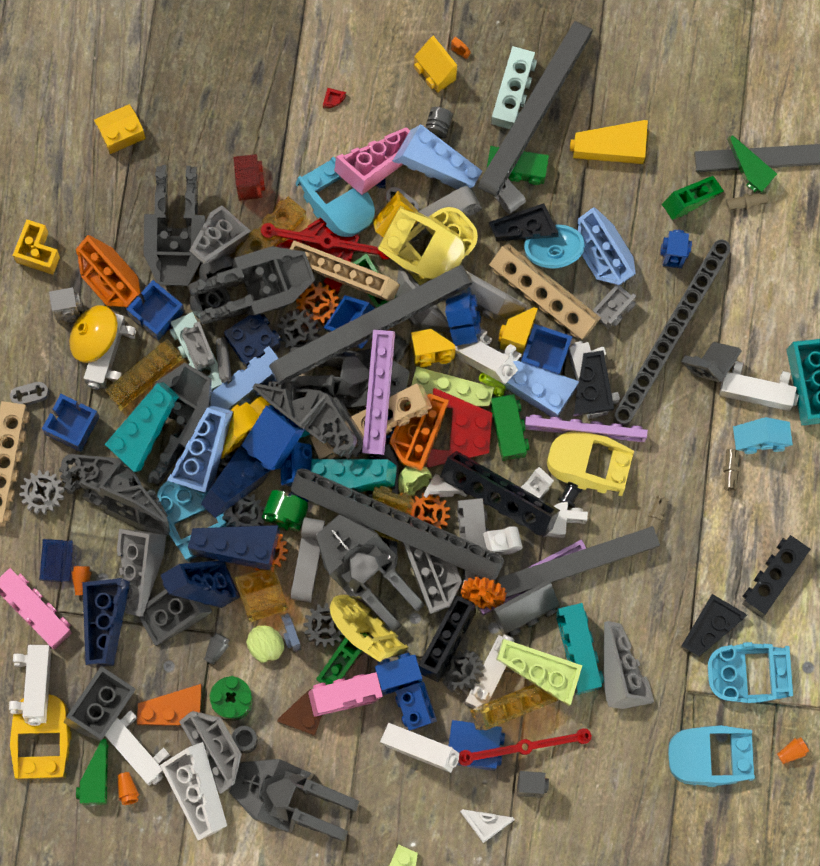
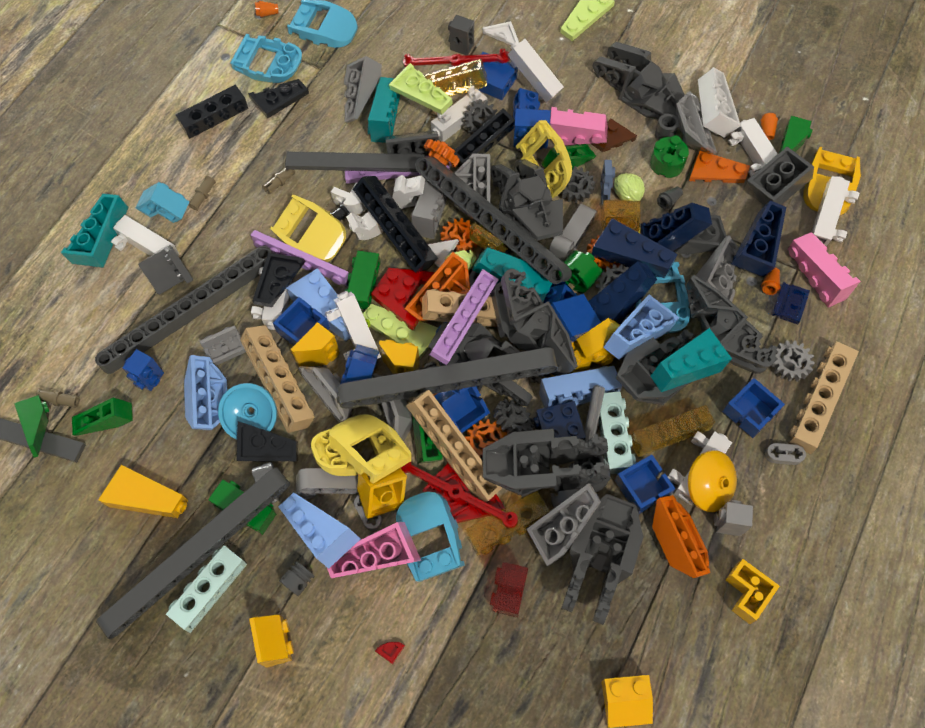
camera: 155 degrees left, 10 degrees down
(198, 346) = (614, 428): light grey hinge -> none
(460, 48) = (238, 656): orange tile -> none

